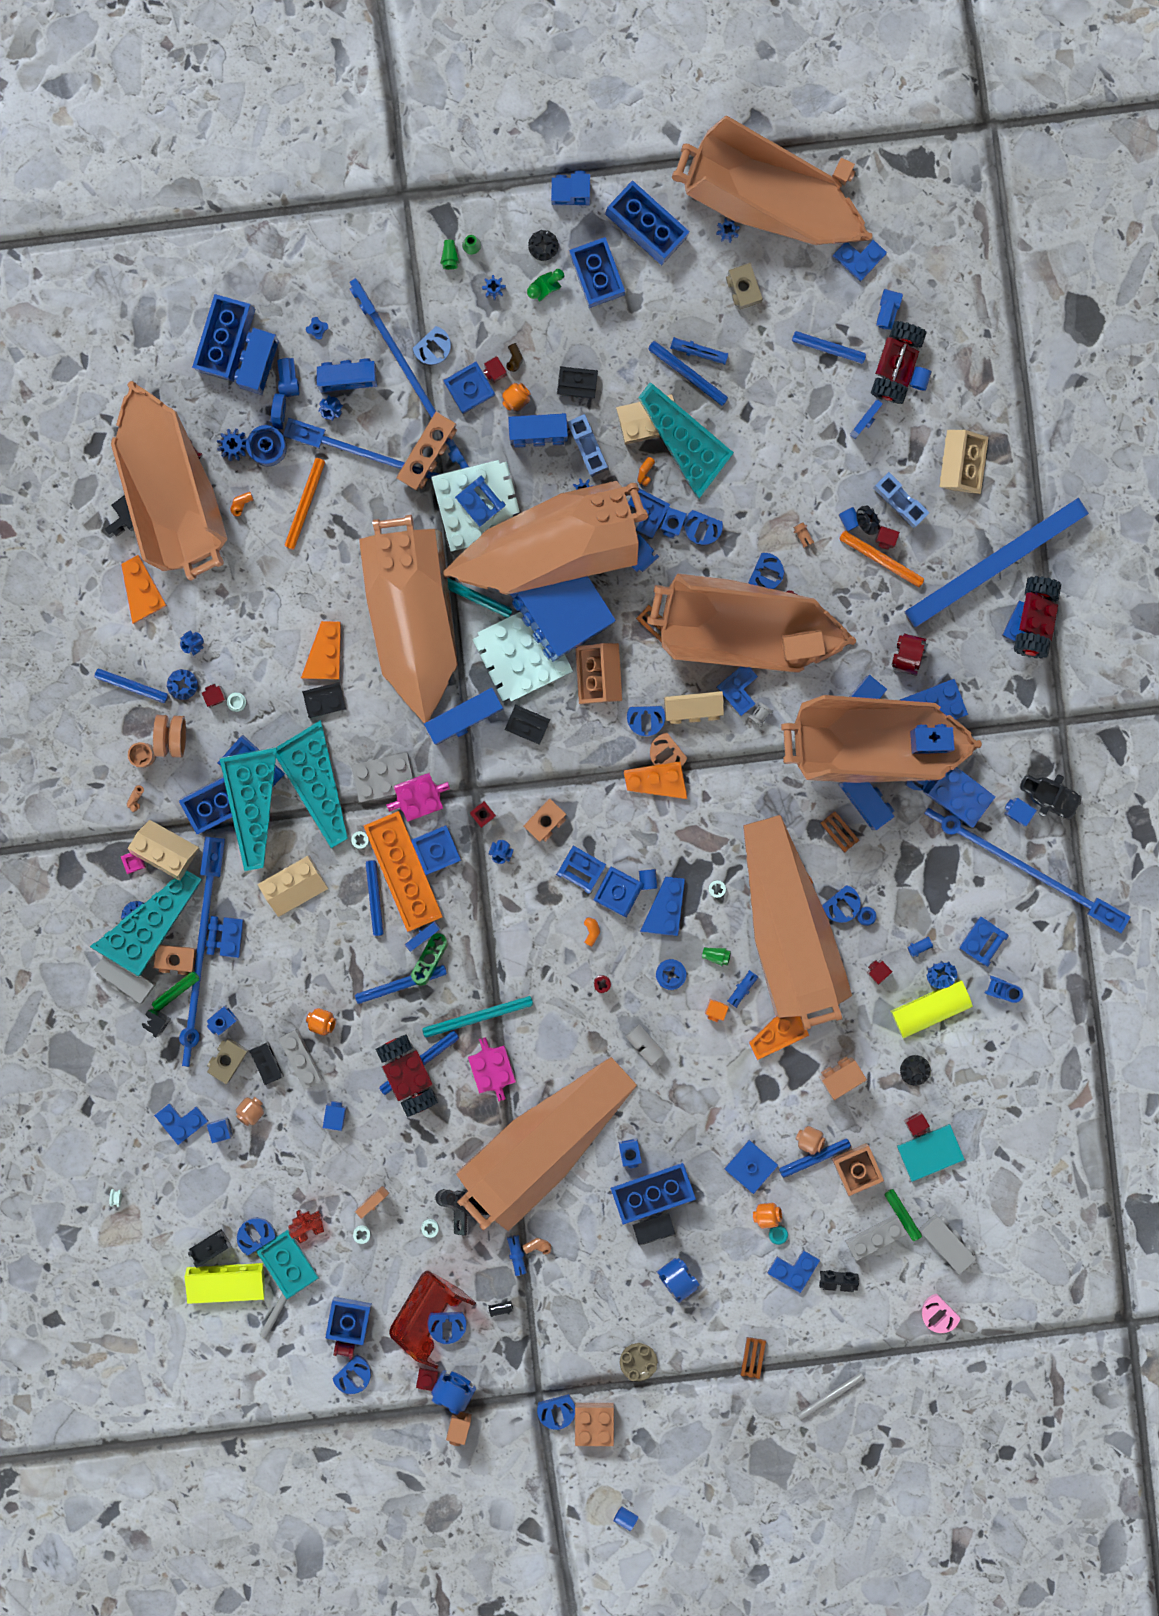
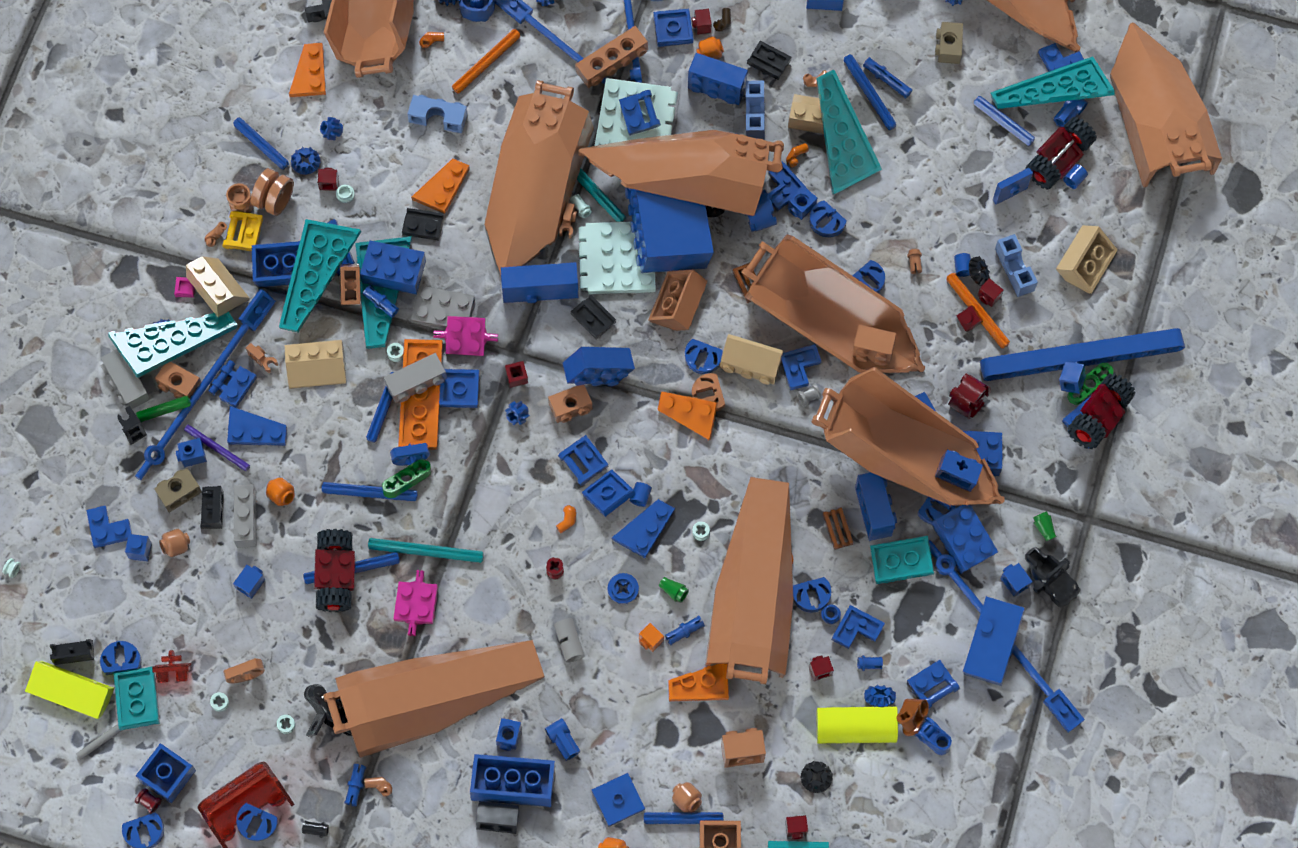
camera: 25 degrees right, 20 degrees down
(165, 781) = (248, 233): none -> yellow plate
(235, 899) = (258, 355): none -> nougat plate
(241, 1003) = (216, 447): none -> dark purple bar
(266, 972) = (252, 429): none -> blue wing
(268, 582) = (423, 108): none -> medium blue arch
(288, 797) = (349, 284): none -> nougat brick
(320, 762) = (393, 267): none -> blue brick
(324, 800) = (380, 301): none -> blue pin
(393, 863) = (415, 378): none -> light grey brick
(460, 632) = (569, 216): none -> nougat plate
(465, 617) = (583, 209): none -> light aqua pin
(558, 780) = (598, 366): none -> blue brick
(632, 384) = (811, 81): none -> nougat arm
(676, 1134) = (560, 735): none -> blue piece
(877, 572) = (969, 318): none -> dark red plate
(878, 284) = (1068, 83): none -> teal wing
(892, 914) = (856, 622): none -> blue plate
(910, 838) = (902, 560): none -> teal tile
(977, 271) = (1161, 109): none -> nougat windscreen
(977, 979) = (912, 715): none -> dark orange piece
(997, 592) = (1072, 377): none -> blue brick
(1012, 602) = (1087, 392): none -> green beam
(1024, 882) = (993, 641): none -> blue brick
(1025, 747) = (1045, 525): none -> green cone

